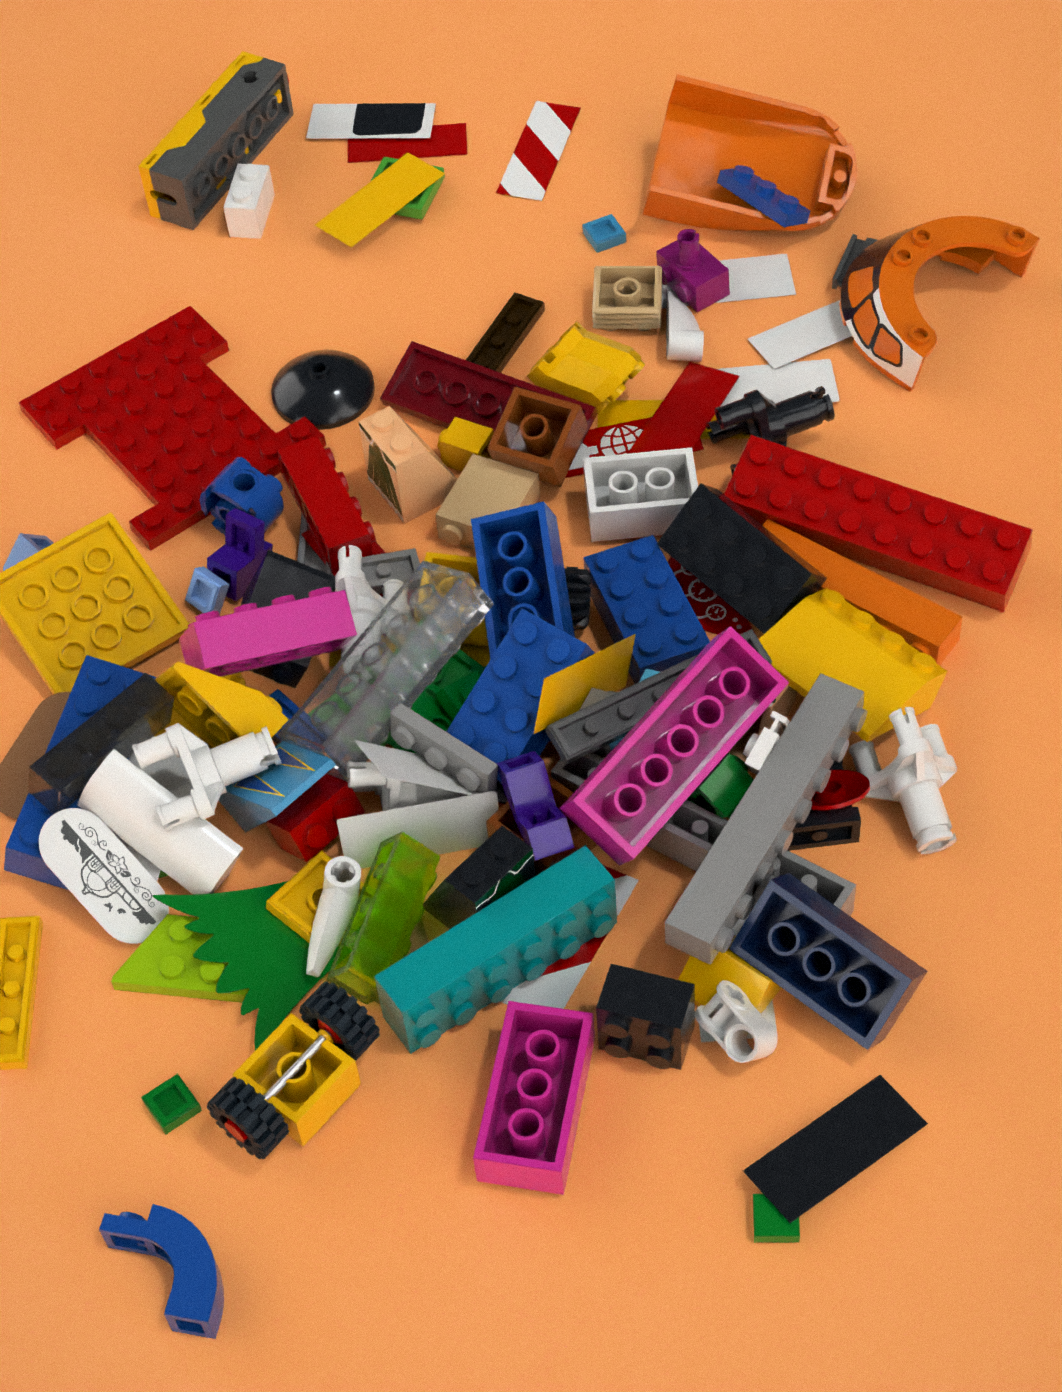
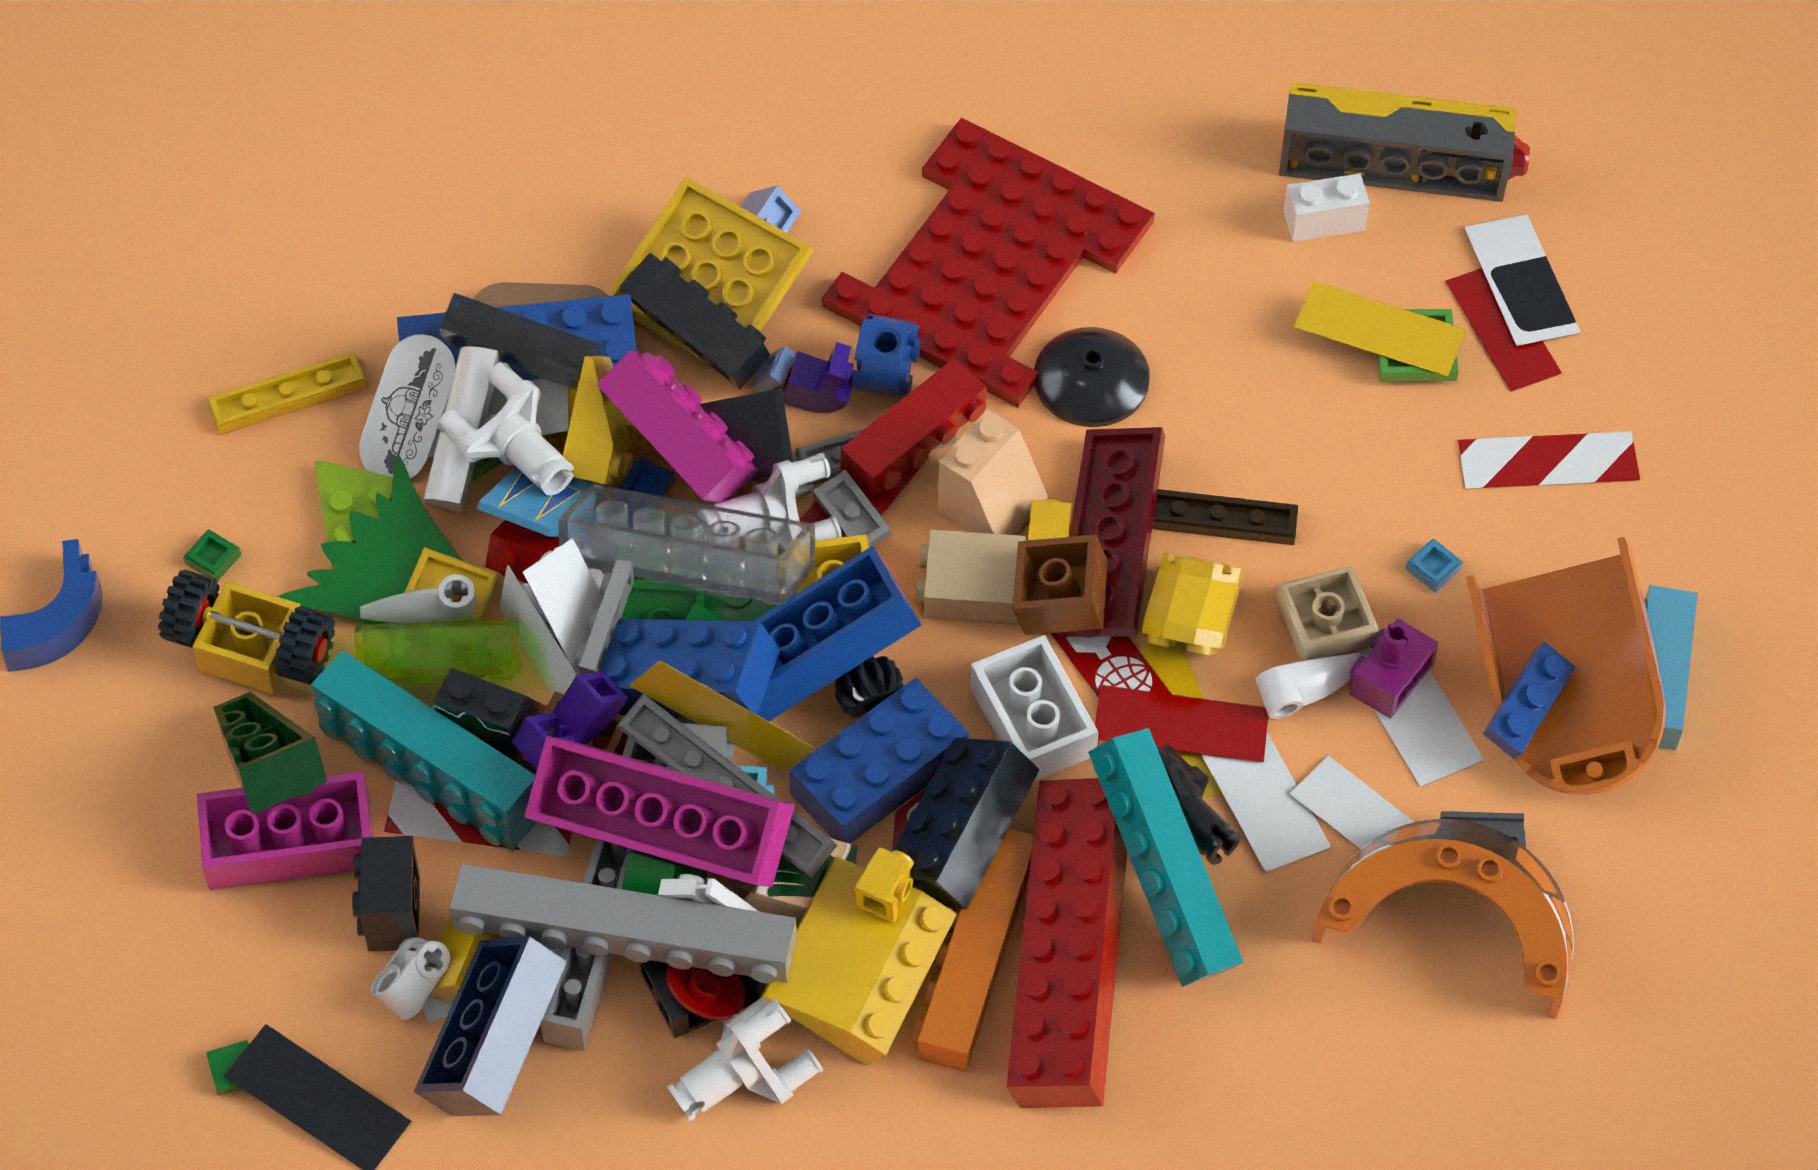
camera: 65 degrees right, 5 degrees up
(132, 622) = (695, 320): none -> black brick
(458, 1075) = (268, 752): none -> dark green wedge
(800, 610) = (884, 884): none -> yellow brick
(831, 430) = (1165, 857): none -> teal brick

